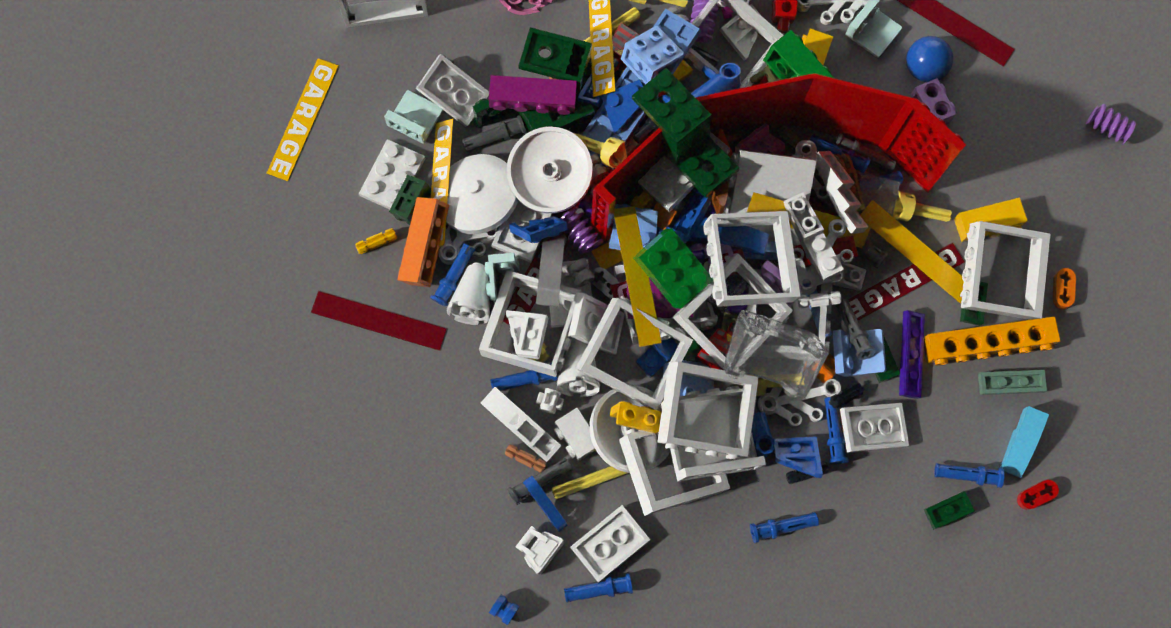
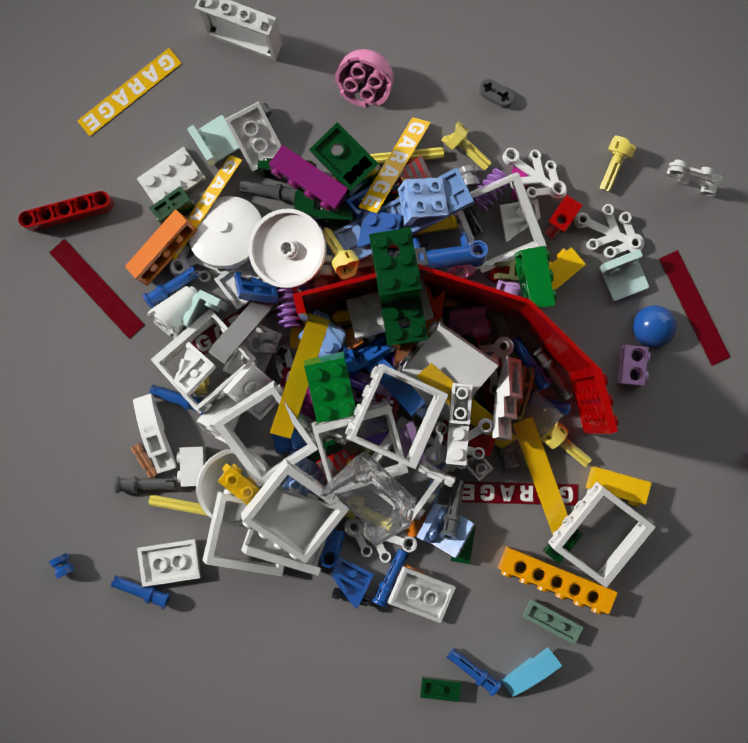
camera: 35 degrees right, 10 degrees up
(309, 251) = (56, 209): none -> red beam
(376, 241) = (129, 224): yellow axle -> none
(542, 551) = (115, 539): white piece -> none
(545, 503) = (135, 505): blue beam -> none
(550, 401) = (187, 428): white gear -> none
(773, 528) = (298, 624): blue pin -> none
(846, 395) = (416, 557): black axle -> none
(912, 354) = (488, 554): dark purple tile -> none
(1035, 490) = (517, 712): red beam -> none
(1059, 288) = (638, 569): orange beam -> none

